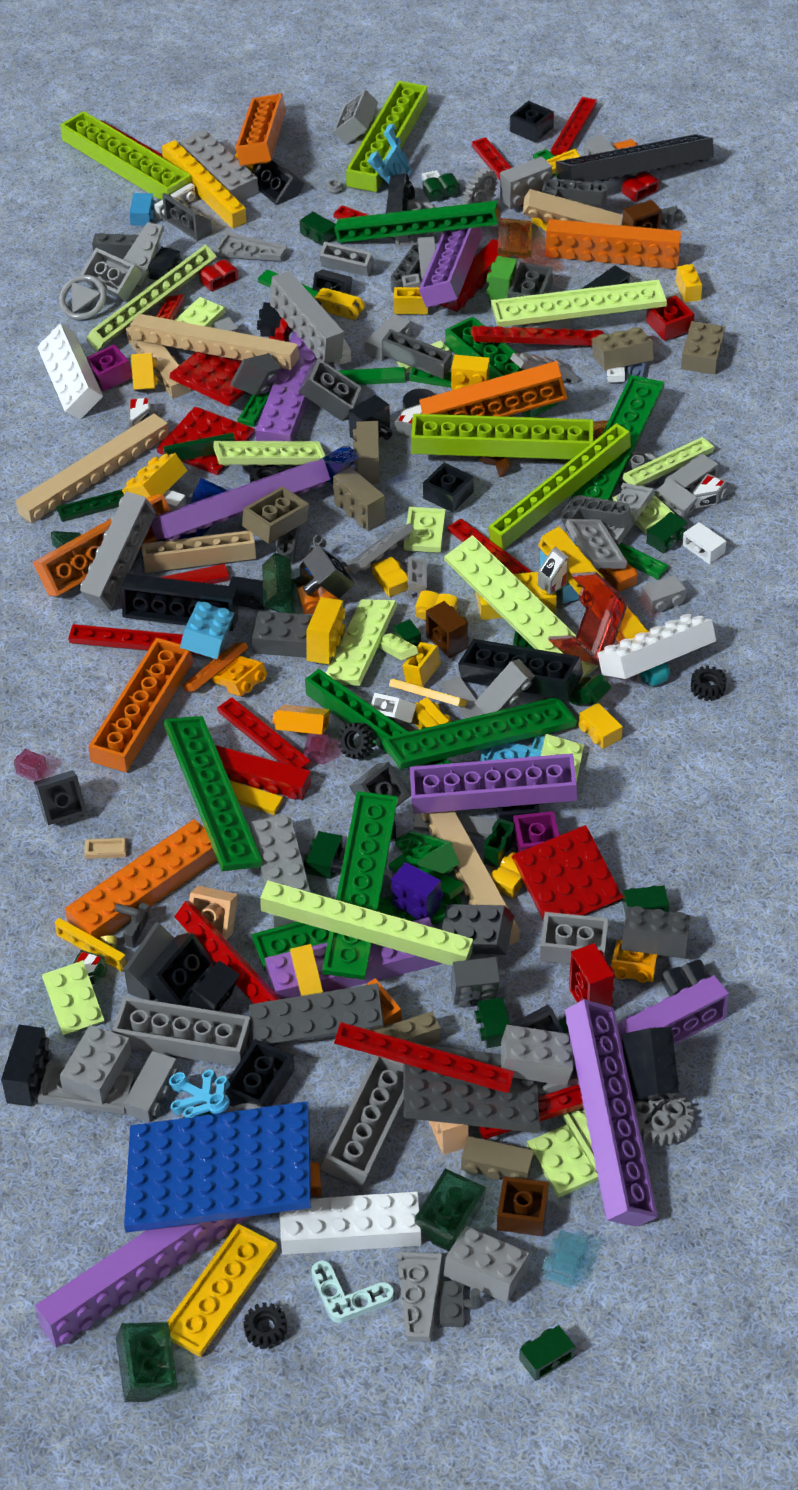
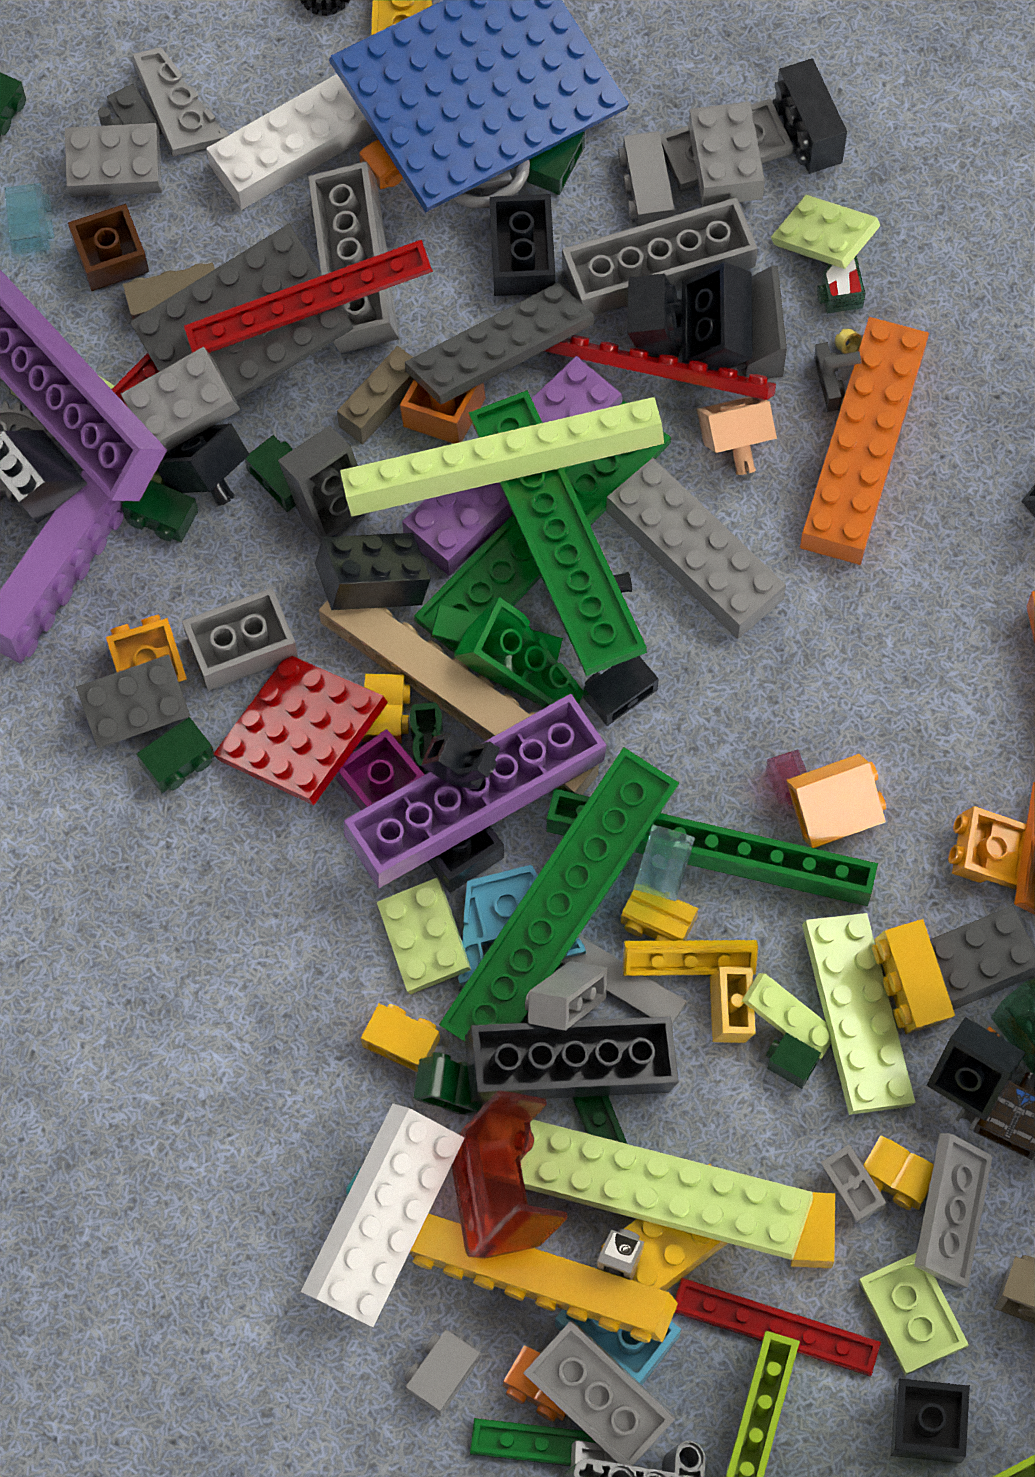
camera: 150 degrees right, 20 degrees up
(90, 944) = (840, 318): yellow tile -> none
(105, 848) = (960, 475): tan tile -> none
(213, 793) = (868, 593): green plate -> none
(214, 1103) = (537, 157): medium azure plant -> none
(256, 798) = (841, 653): yellow tile -> none
(262, 734) = (892, 765): red plate -> none
(265, 773) = (854, 689): red brick -> none
(306, 970) = (542, 383): yellow tile -> none
(323, 851) = (659, 607): dark green brick -> none
(341, 1301) = (258, 56): light aqua beam -> none
(347, 740) = (734, 807): black tyre -> none
(381, 780) = (662, 742): dark grey slope -> none
(394, 707) = (718, 887): white brick -> none
(416, 714) = (664, 862): none -> clear light blue brick
(416, 892) = (481, 574): dark purple brick -> none
(428, 599) = (787, 1145): yellow brick -> none
(444, 577) = (817, 1239): none -> yellow brick
(447, 629) = (734, 1089): reddish brown brick -> none
(449, 1208) = (187, 193): clear green slope -> none
(494, 776) = (460, 762): none -> black brick
(562, 1161) = (100, 339): yellowish green plate -> none
(591, 976) = (174, 562): red brick -> none
(685, 976) = (60, 661): black brick -> none
(706, 691) = (279, 1197): black tyre -> none

